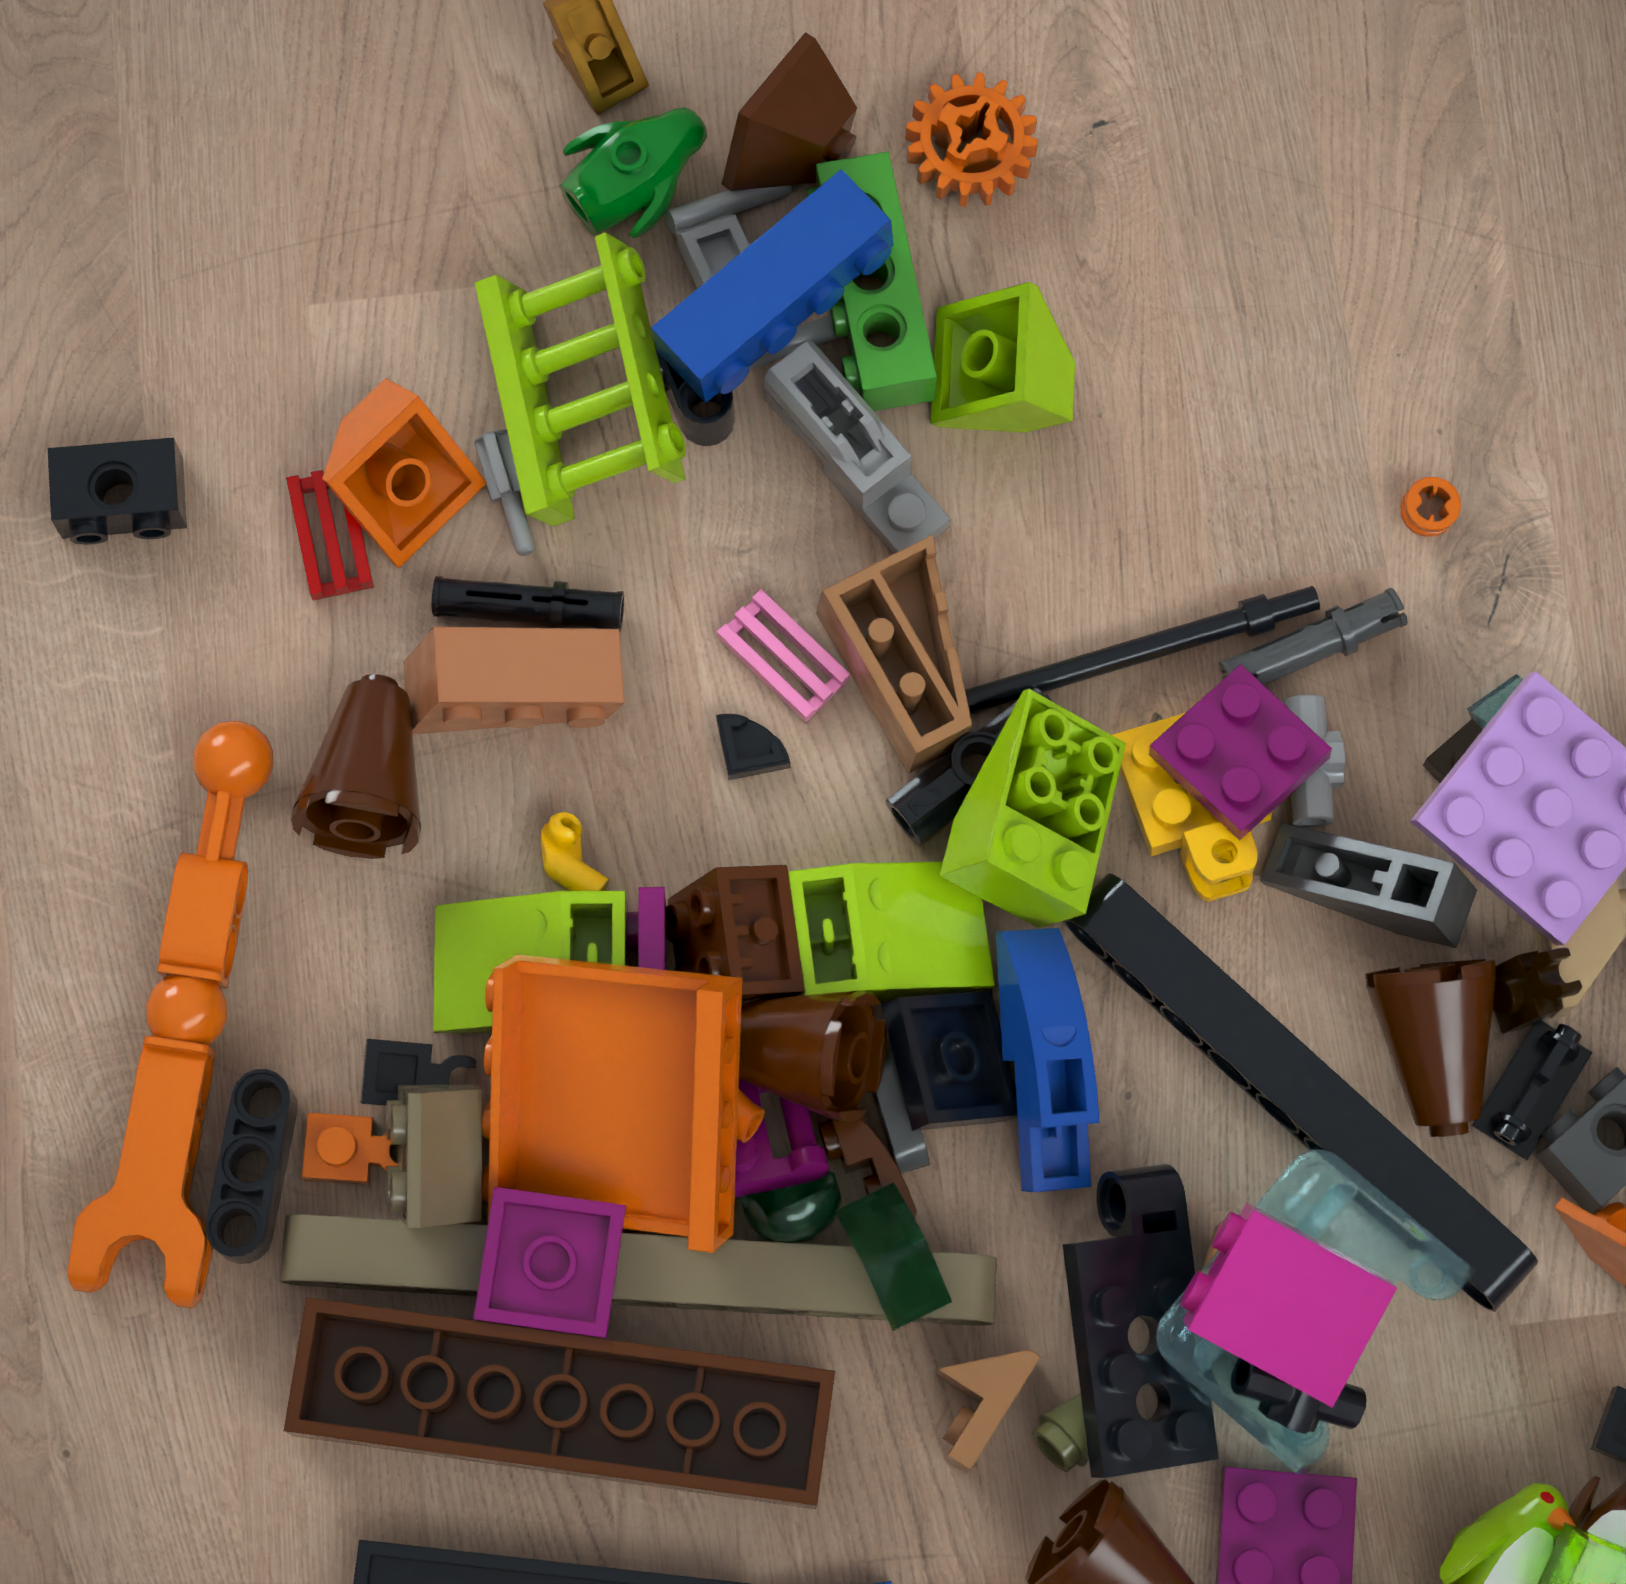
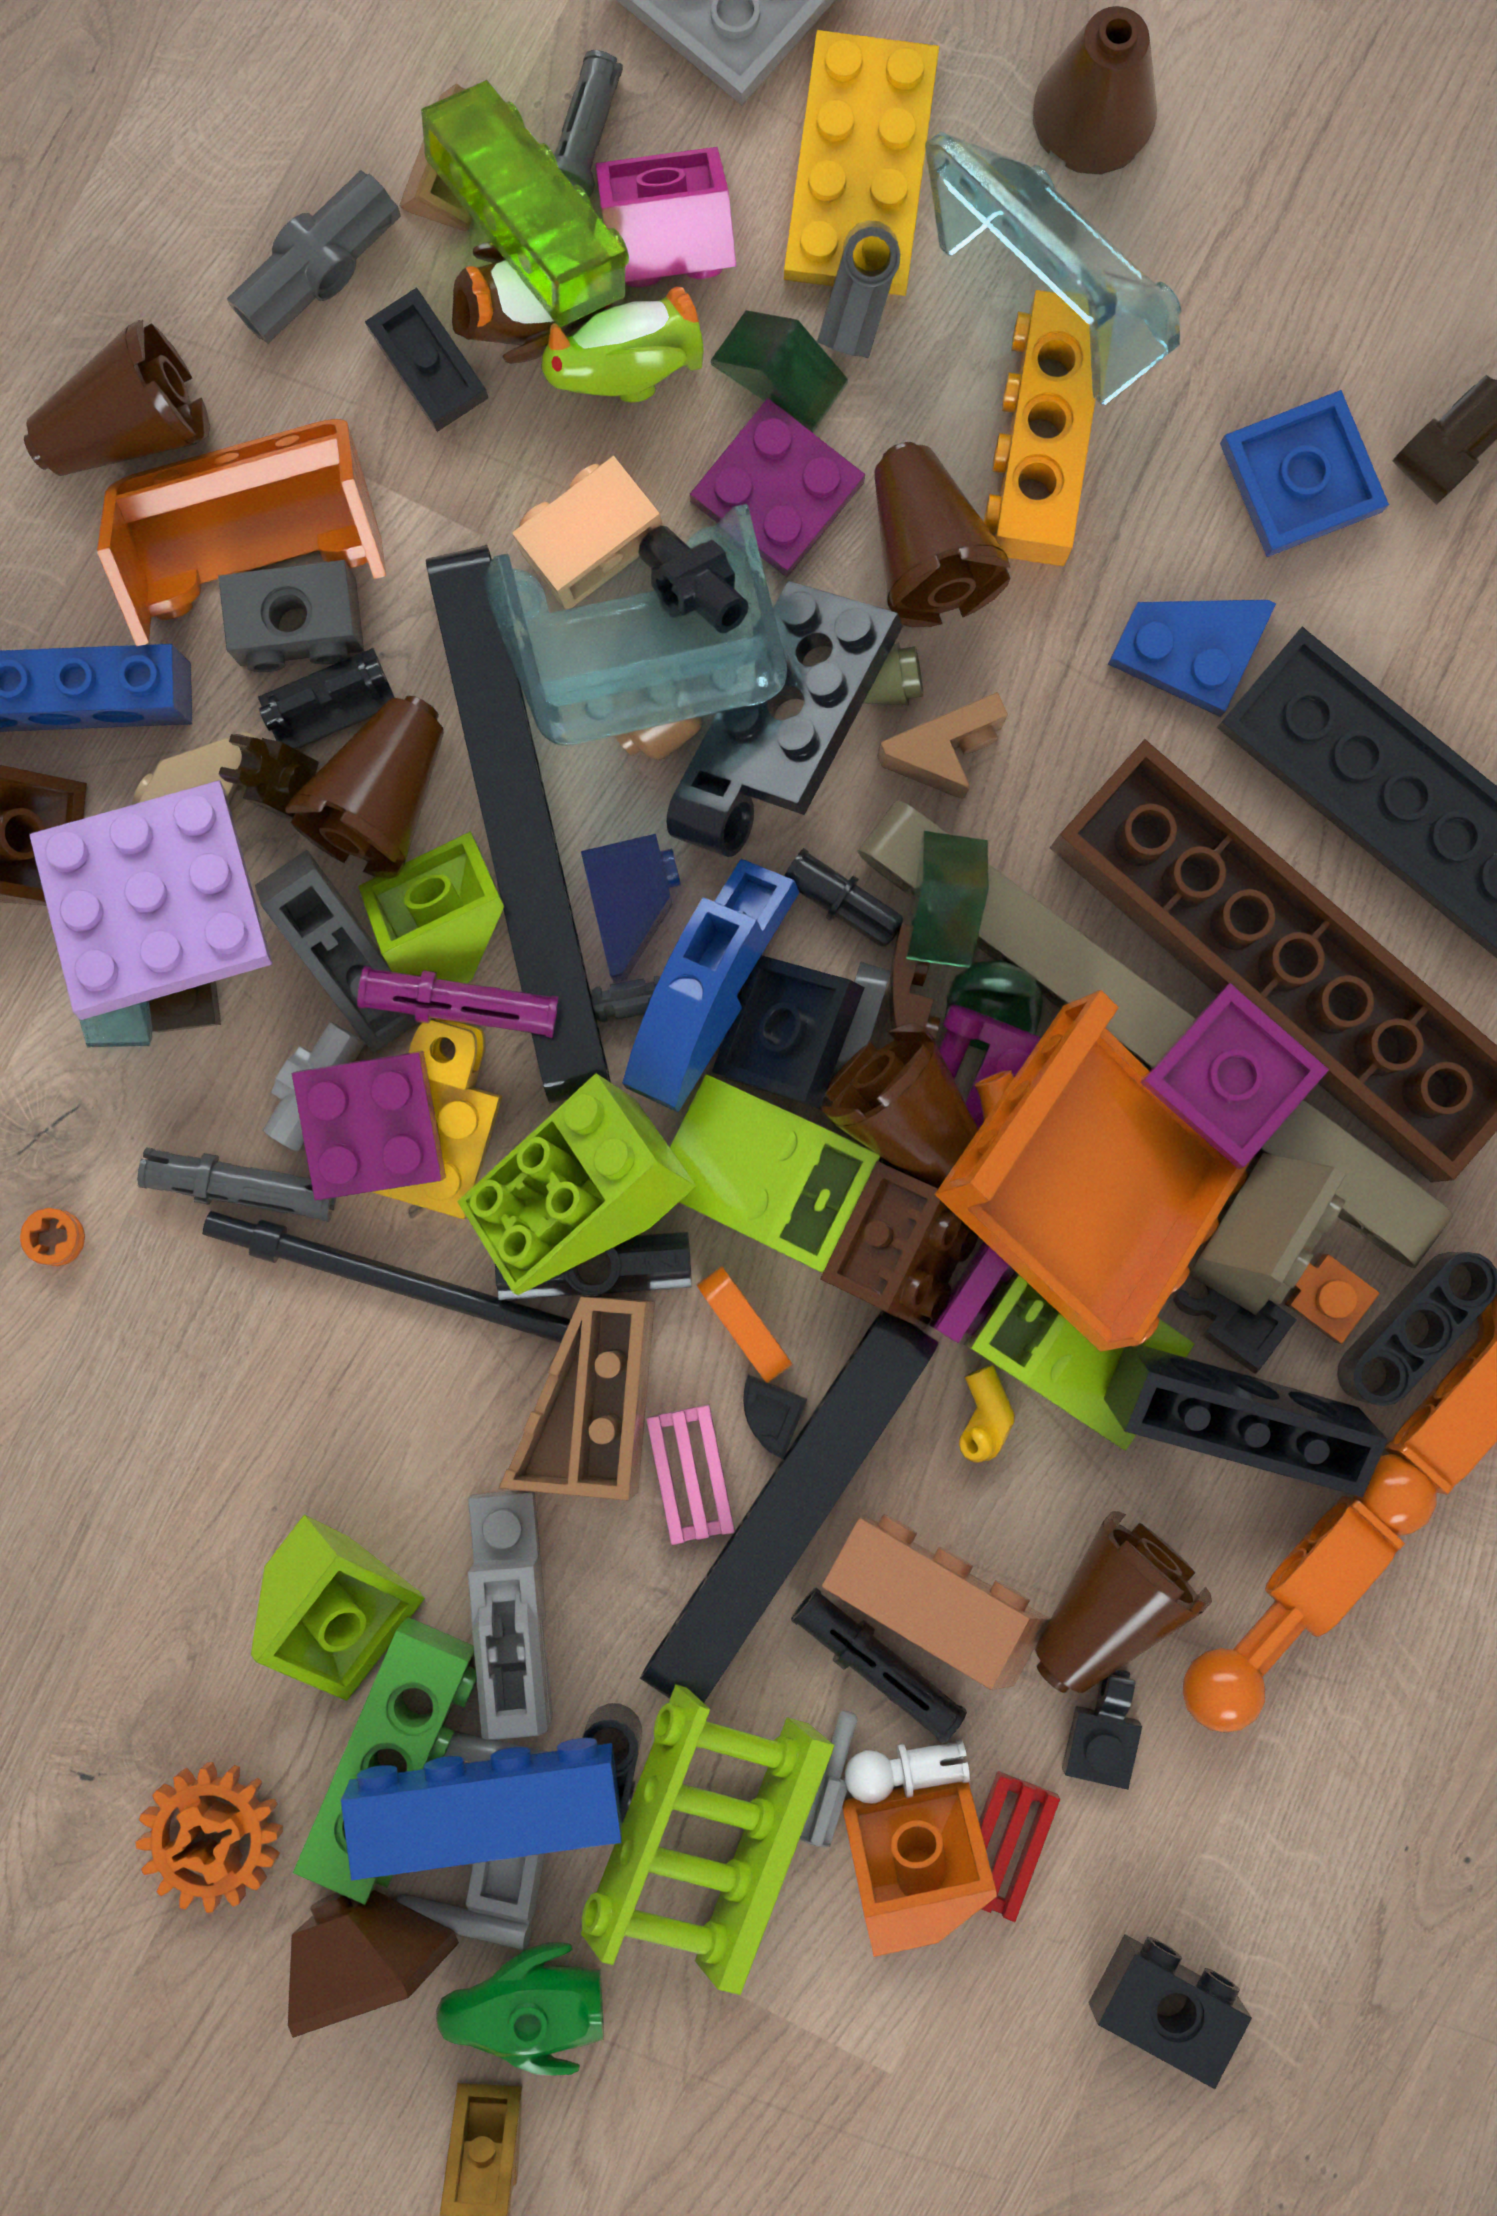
camera: 140 degrees left, 10 degrees up
(303, 666) = (1103, 1740): none -> black plate
(356, 984) = (1244, 1419): none -> black brick
(475, 515) = (873, 1776): none -> white pin
(683, 680) = (791, 1507): none -> black beam
(821, 800) = (744, 1324): none -> orange beam
(981, 1211) = (844, 899): none -> black axle
(1108, 1001) = (623, 999): none -> dark grey piece
(1160, 1086) = (629, 897): none -> clear blue slope
(1261, 884) = (456, 1001): none -> magenta pin
(1286, 1303) = (664, 628): dark pink brick -> none
(1311, 960) = (436, 912): none -> lime slope
(1418, 1376) = (587, 531): none -> light nougat brick

